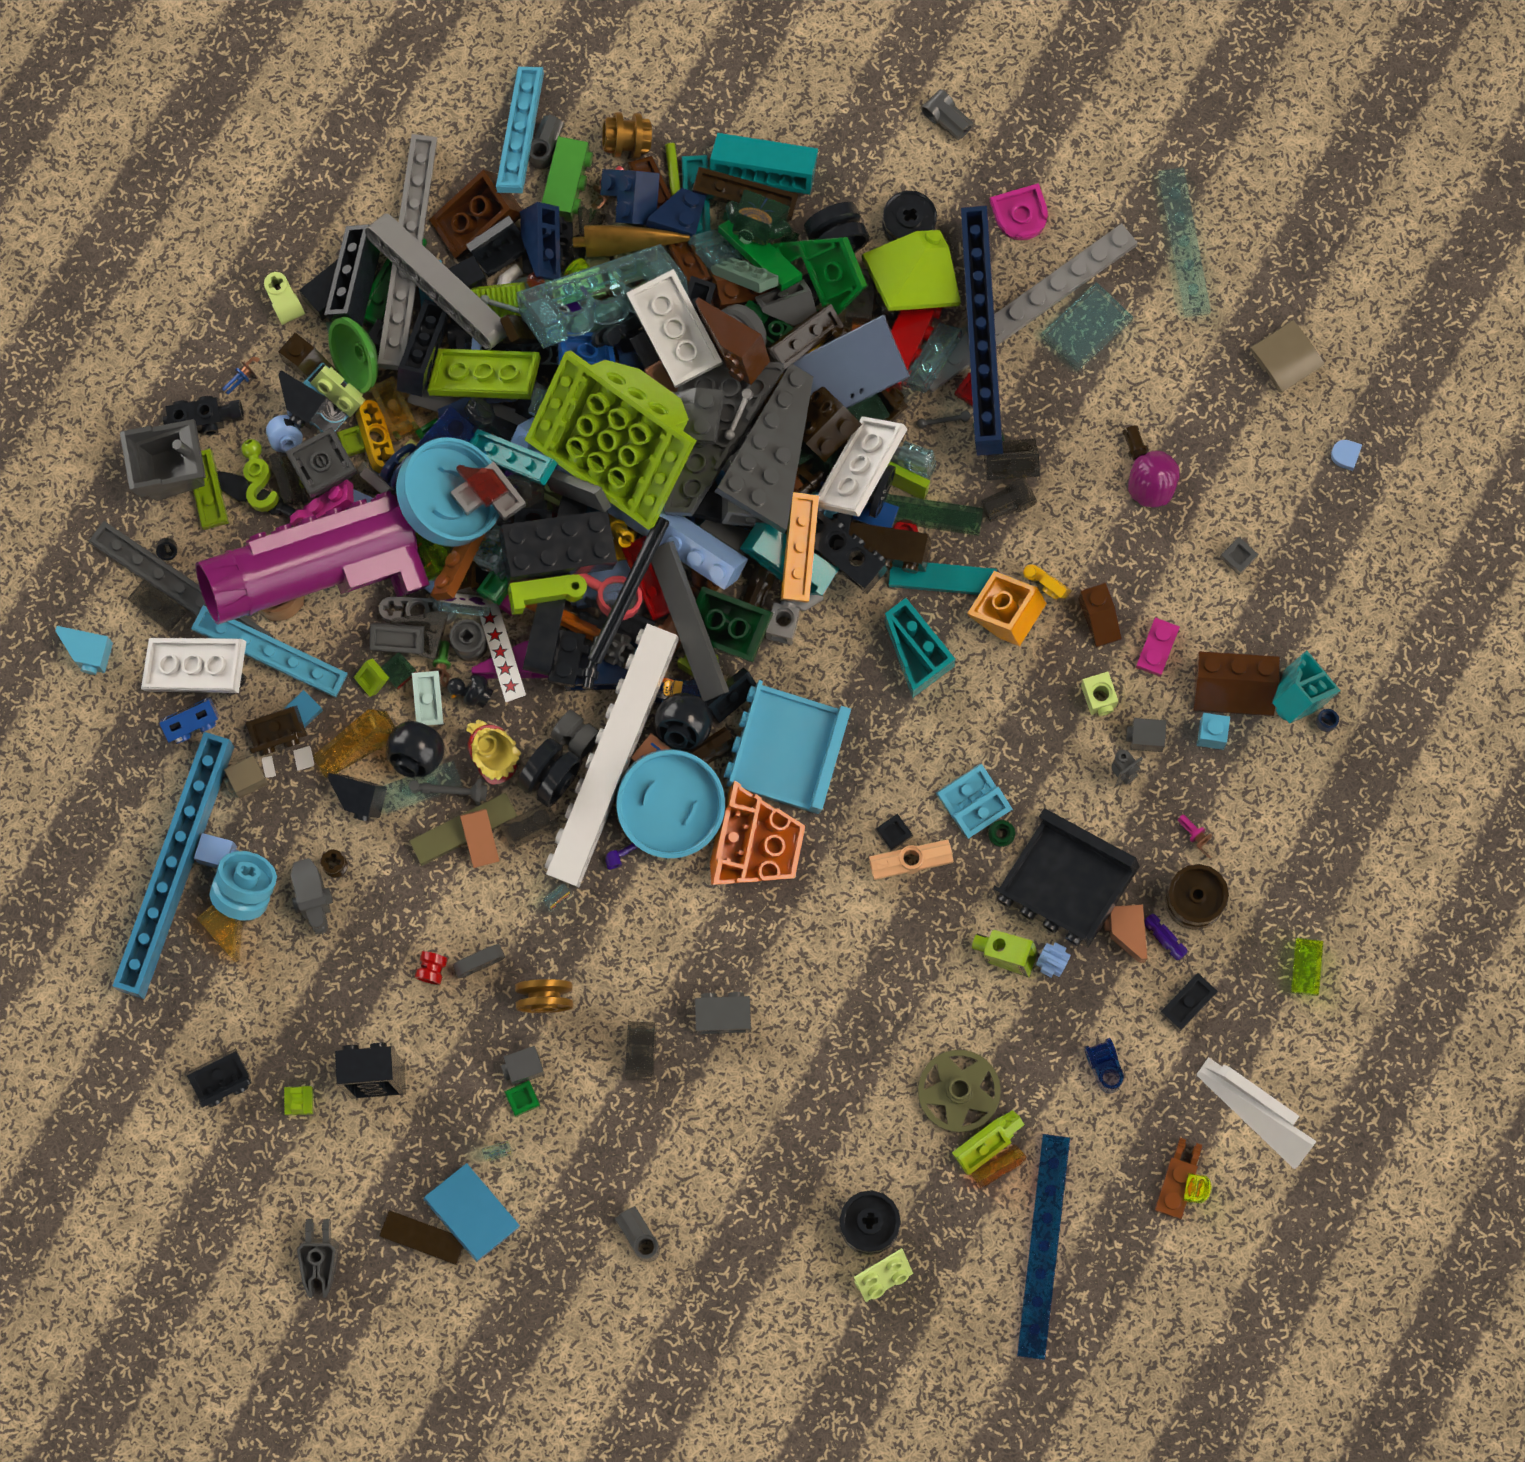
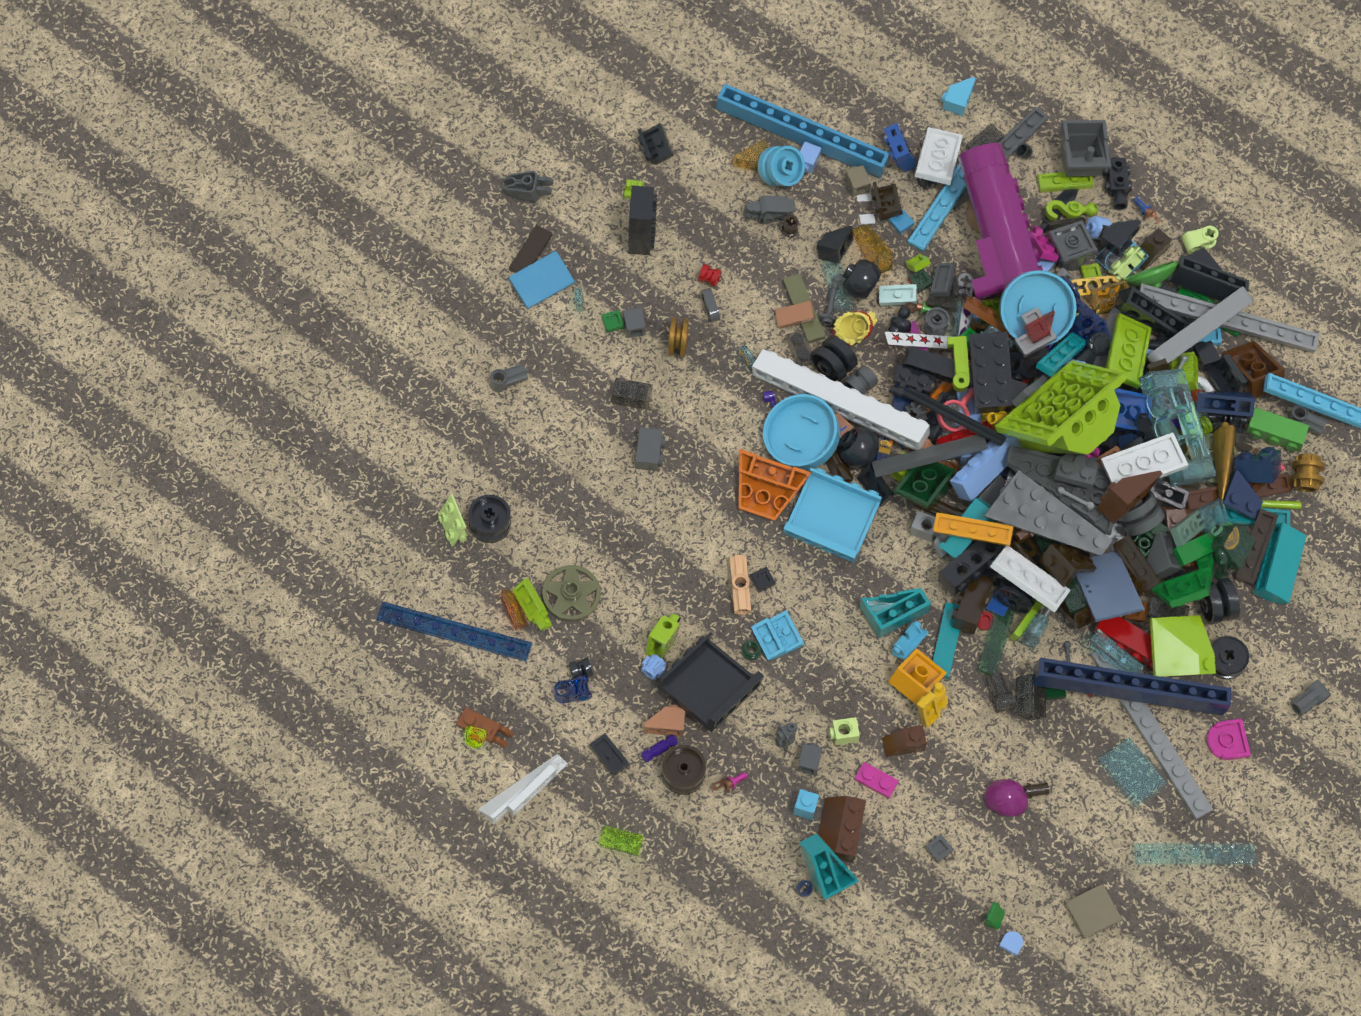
camera: 90 degrees right, 10 degrees down
(955, 625) = (909, 643): none -> medium azure hinge
(1072, 1059) = (581, 668): none -> black wheel
(1316, 479) = (995, 916): none -> green slope

